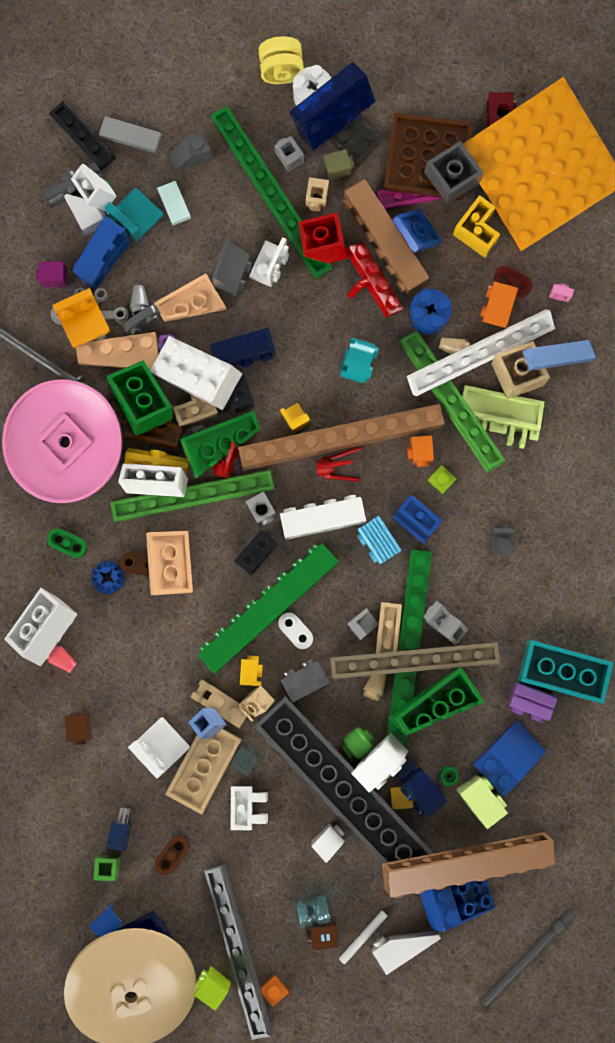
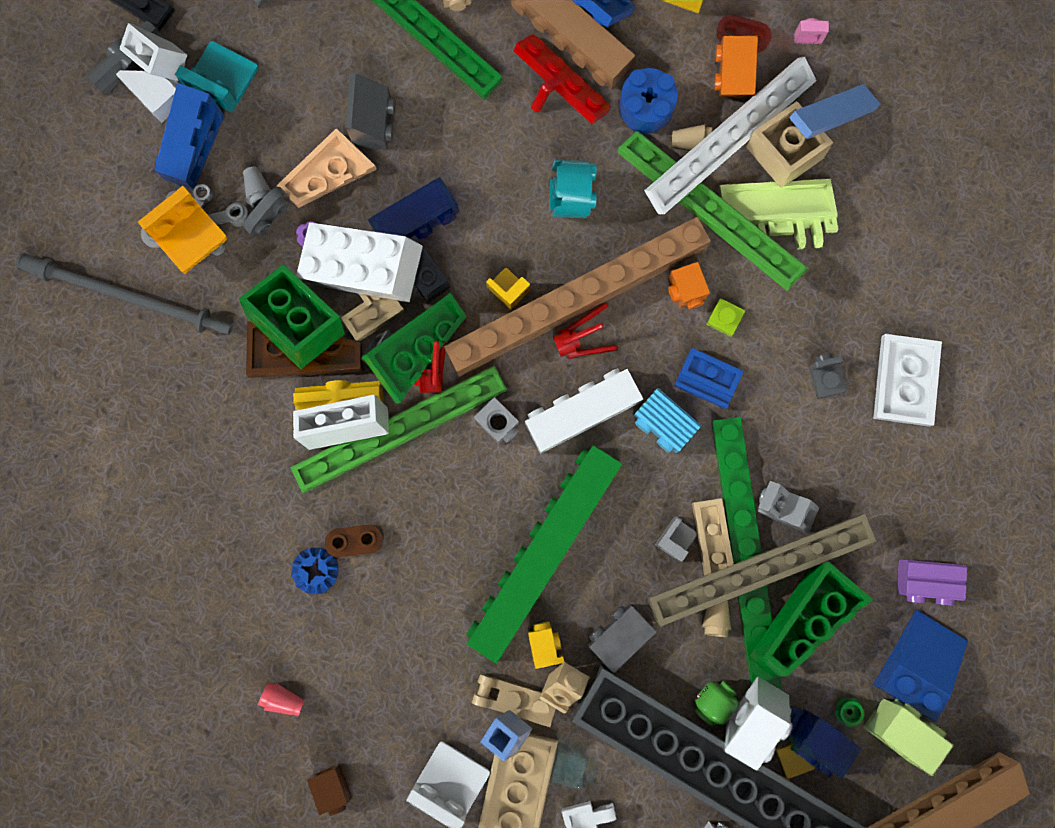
camera: 20 degrees left, 0 degrees up
(35, 434) = (164, 412): bright pink dish -> none
(40, 627) = (240, 667): white brick -> none
(52, 274) = (129, 183): magenta brick -> none
(67, 544) = (247, 540): green plate -> none
(120, 351) = (247, 262): light nougat wing -> none
(169, 562) = (393, 528): light nougat plate -> none
(174, 203) = (268, 48): light aqua tile -> none
(255, 553) = (506, 482): black brick -> none
(269, 262) = (416, 92): white bracket -> none
(295, 630) = (589, 572): white plate -> none
(323, 238) = (481, 40): red slope -> none
(557, 558) = (907, 380): none -> white plate
(565, 671) = (966, 528): teal brick -> none

